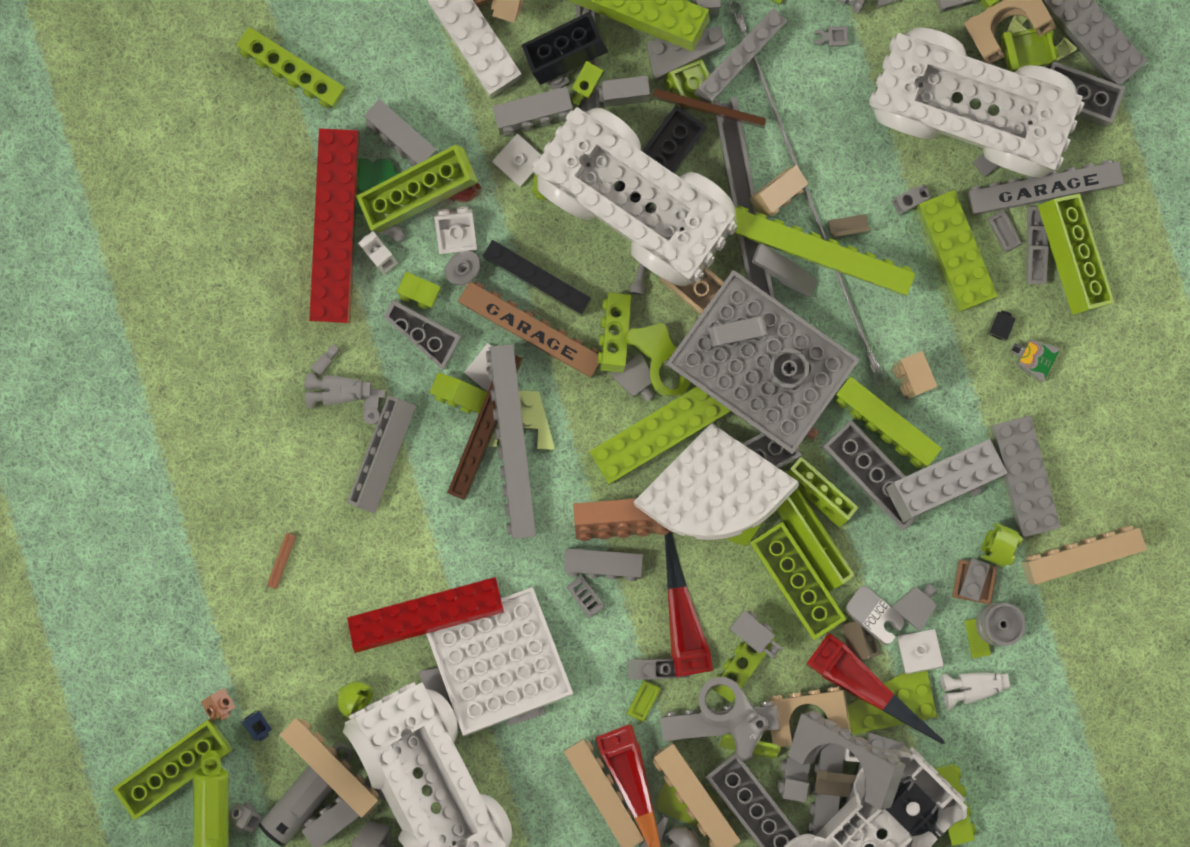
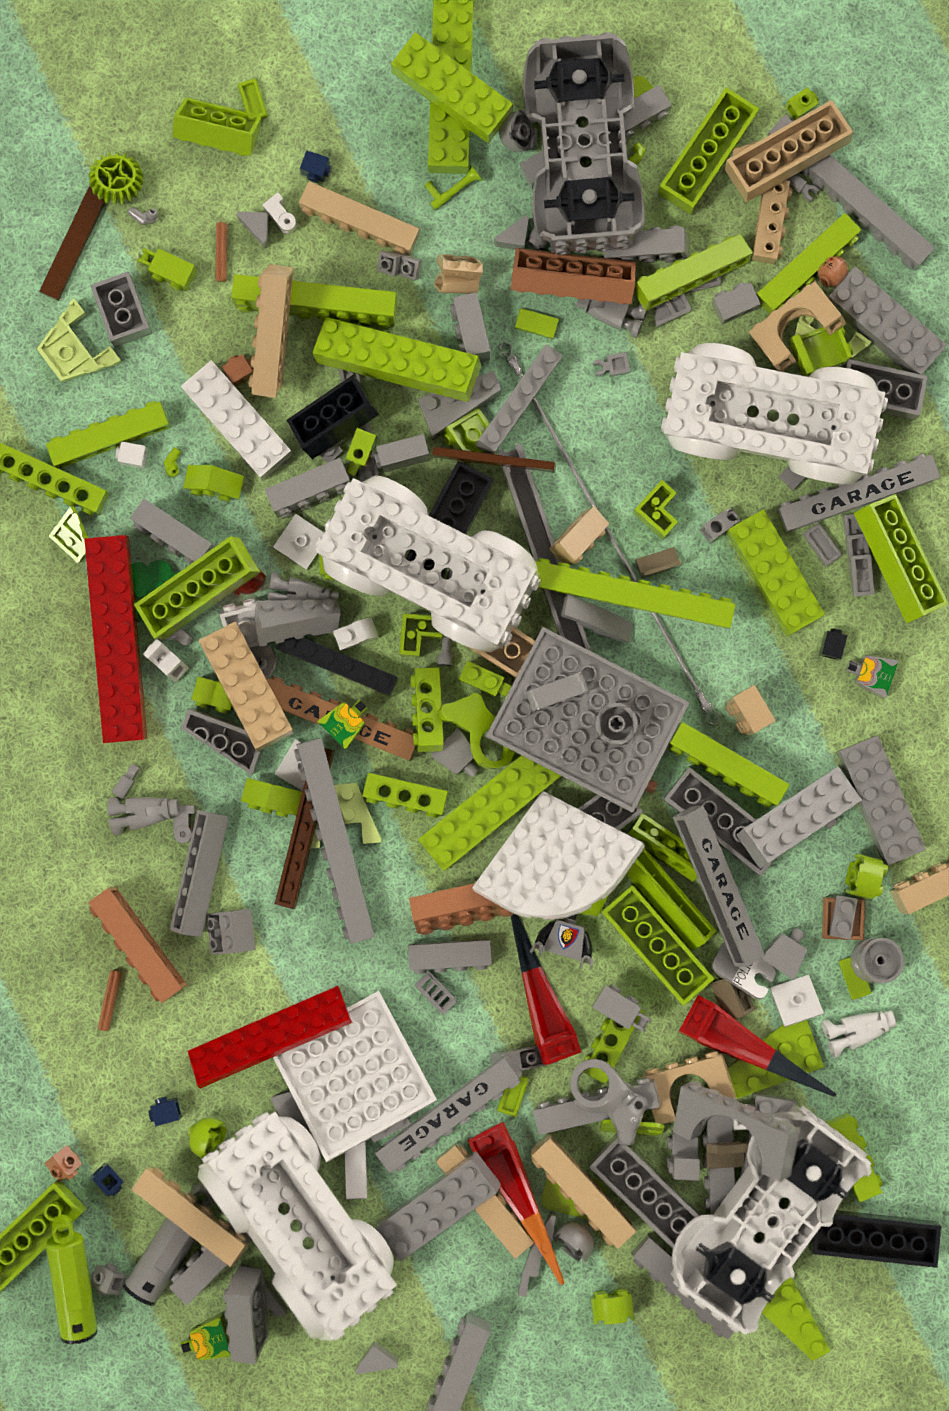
camera: 10 degrees left, 0 degrees up
(305, 124) = (70, 535): none -> wing
(315, 511) = (137, 944): none -> nougat brick
(318, 670) = (165, 1111): none -> dark blue brick
(353, 36) = (107, 435): none -> lime brick
(372, 57) = (132, 455): none -> white brick
(402, 512) = (230, 931): none -> light grey slope
(407, 70) = (170, 462): none -> lime arm
(444, 93) = (213, 481): none -> lime brick
(449, 287) = (246, 687): none -> tan brick
(488, 751) = (356, 1172): none -> white slope
(503, 230) = (295, 619): none -> light grey wedge
(511, 209) = (298, 590): none -> light grey piece
(536, 333) = (344, 722): none -> torso
(557, 392) = (375, 782): none -> lime brick
(559, 252) = (356, 633): none -> white brick
(560, 792) = (438, 1206): none -> light grey brick
(582, 708) = (448, 1113): none -> light grey brick
(612, 256) = (412, 631): none -> lime brick
(671, 312) = (484, 680): none -> lime brick
(713, 564) = (565, 940): none -> torso
(850, 177) = (652, 510): none -> lime brick
(862, 533) = (719, 886): none -> light grey brick

